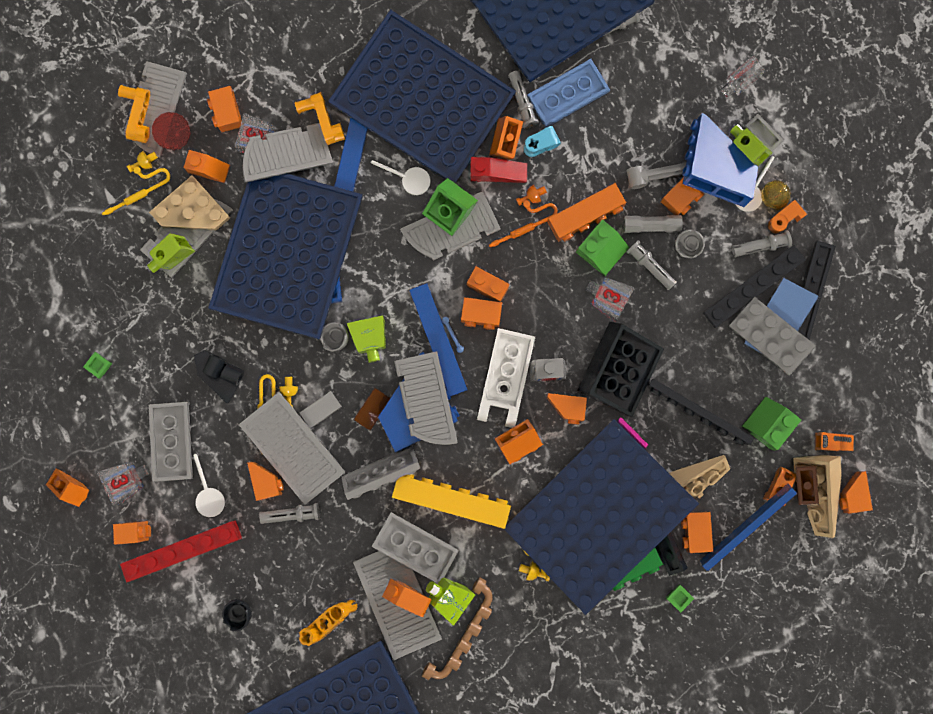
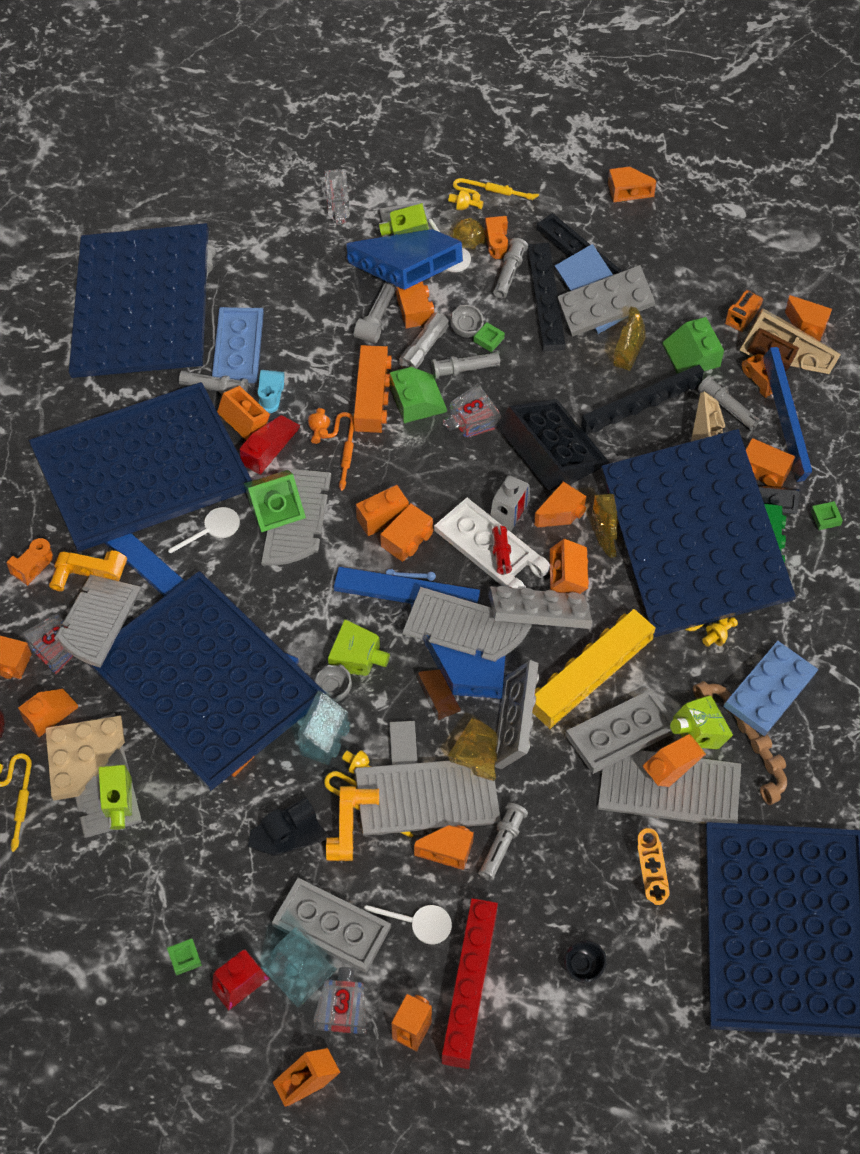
camera: 60 degrees left, 25 degrees down
(100, 409) = (238, 978): none -> red torso
(130, 441) = (298, 966): none -> clear light blue slope
(225, 416) = (341, 847): none -> light orange beam
(295, 353) = (323, 729): none -> clear light blue slope
(305, 79) = (31, 562): none -> orange leg
(342, 460) = (476, 749): none -> clear yellow slope
(472, 441) = (539, 607): none -> light grey plate
(503, 388) = (501, 550): none -> red pin
(509, 631) = (770, 688): none -> medium blue plate
(570, 447) = (605, 522): none -> clear yellow slope
(687, 268) = (489, 337): none -> bright green plate
(740, 466) = (722, 395): none -> light grey pin
(746, 374) = (630, 341): none -> clear yellow slope
(806, 171) = (464, 199): none -> yellow piece
(904, 287) = (630, 184): none -> orange slope

